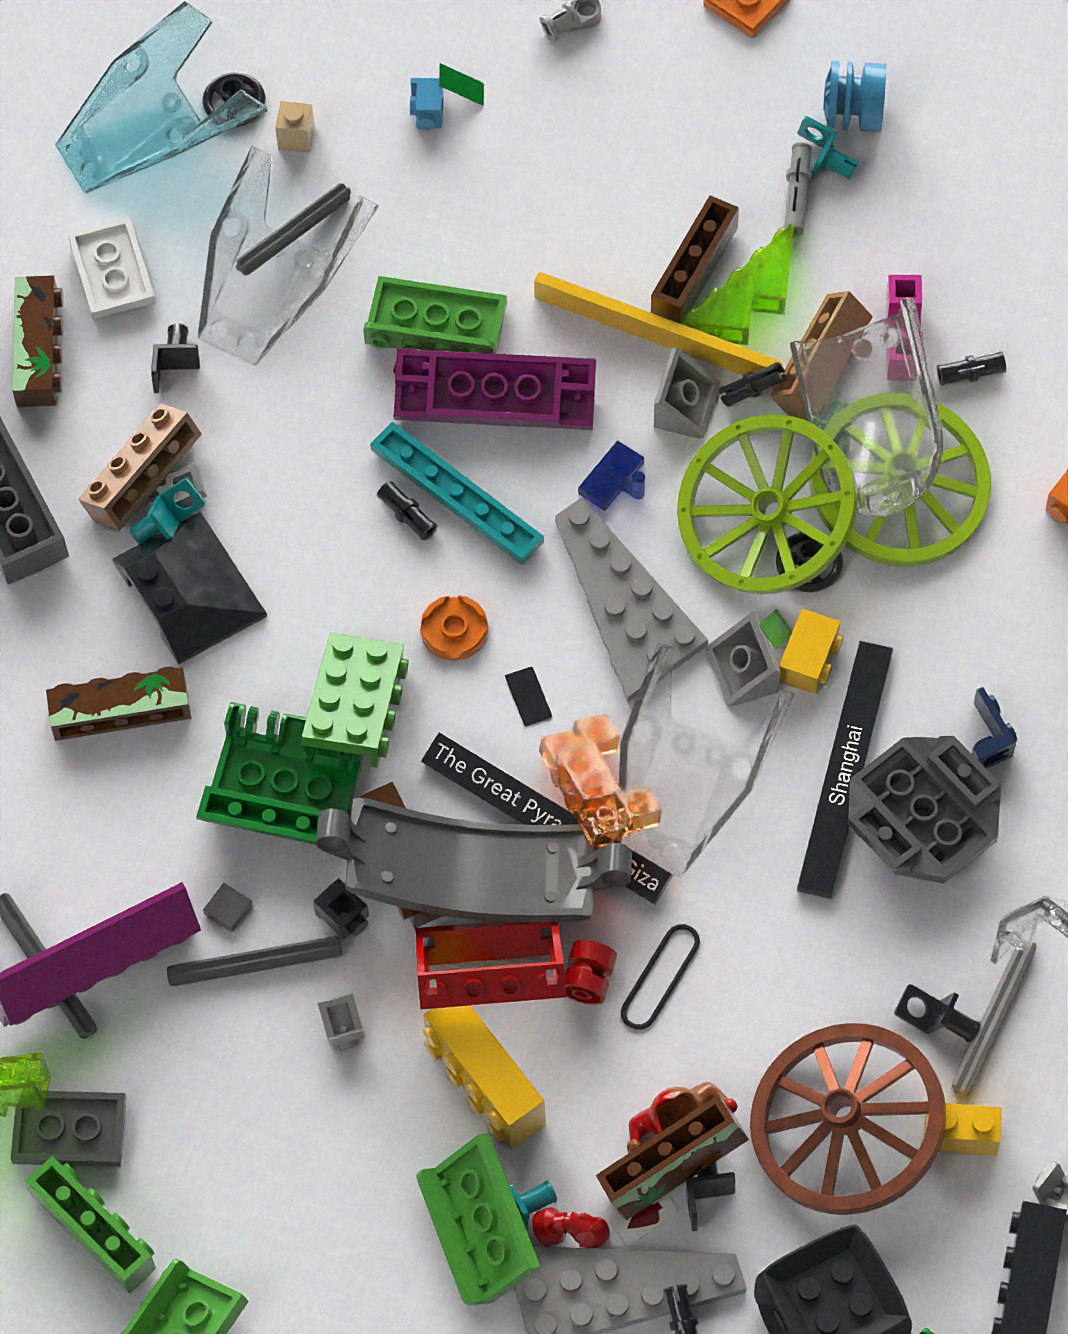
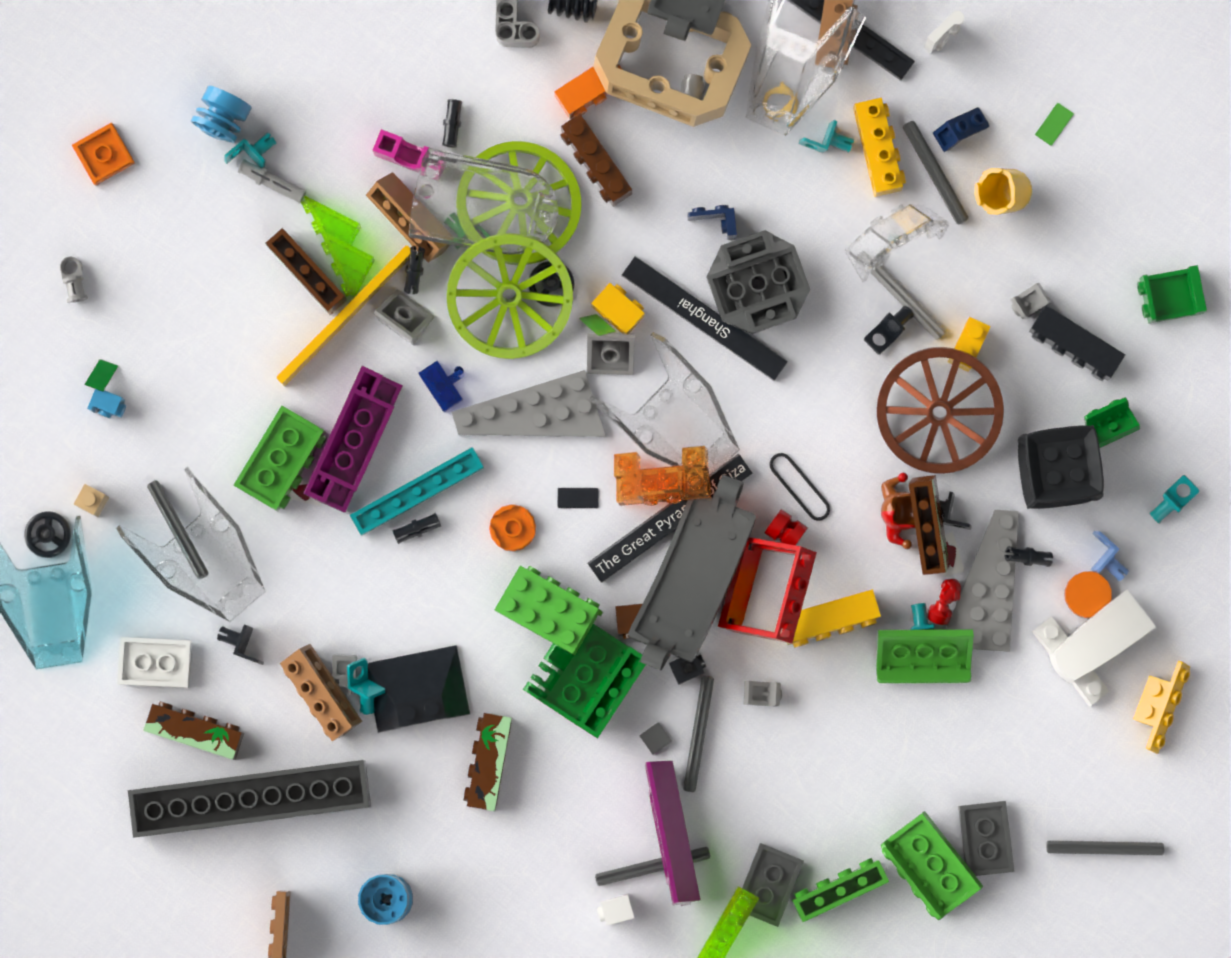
camera: 70 degrees left, 20 degrees up
(1001, 553) = (596, 160): none -> reddish brown brick

